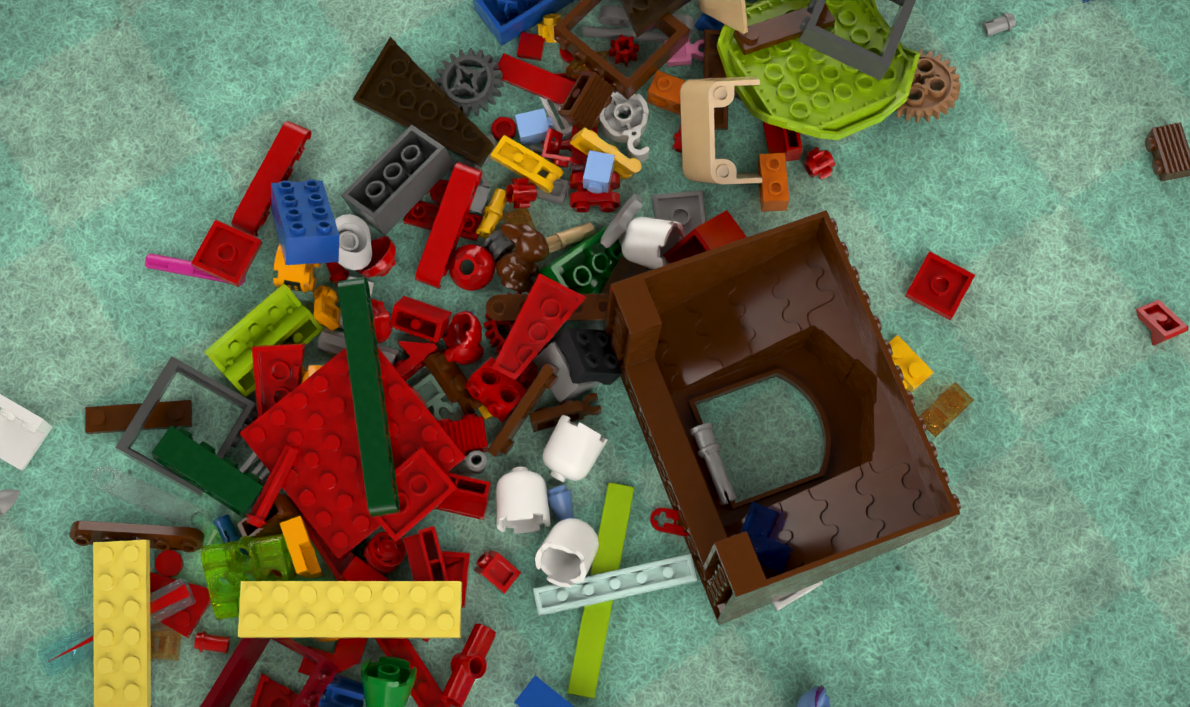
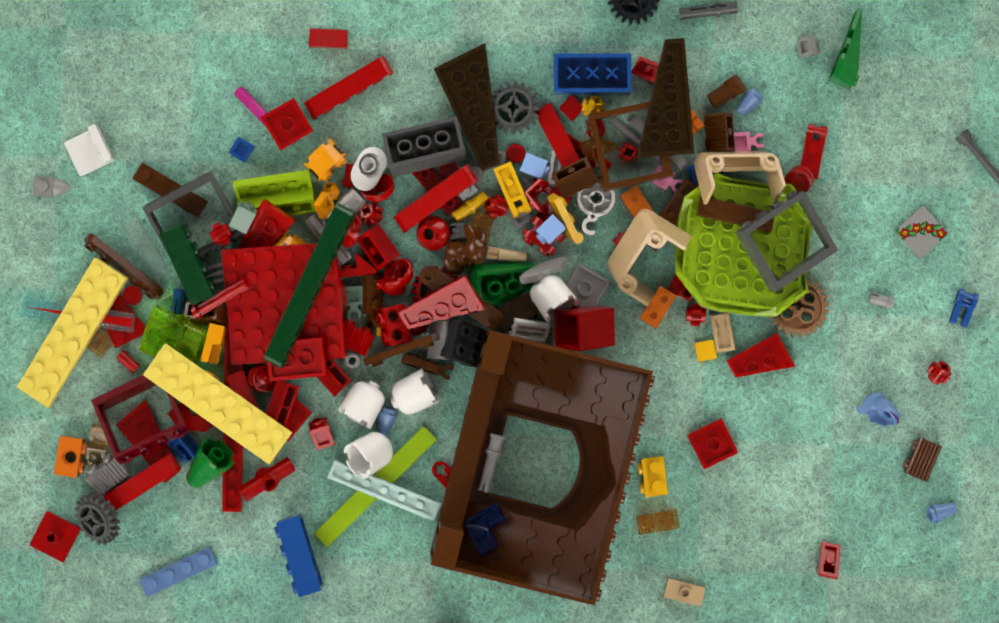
camera: 30 degrees right, 15 degrees up
(193, 320) = (241, 149): none -> blue tile
(215, 144) = (328, 38): none -> red slope
(227, 417) = (220, 233): none -> red gear
(241, 380) = (243, 216): none -> brick
(304, 222) = (346, 140): blue brick -> none
(388, 289) = (371, 213): none -> red gear
(857, 195) = (705, 350): none -> yellow tile
(861, 164) = (722, 332): none -> tan plate
(922, 162) = (760, 358): none -> red wing
(1033, 467) = (684, 592): none -> tan plate
(1088, 131) = (879, 409): none -> medium blue hair
(1116, 54) = (939, 372): none -> red gear

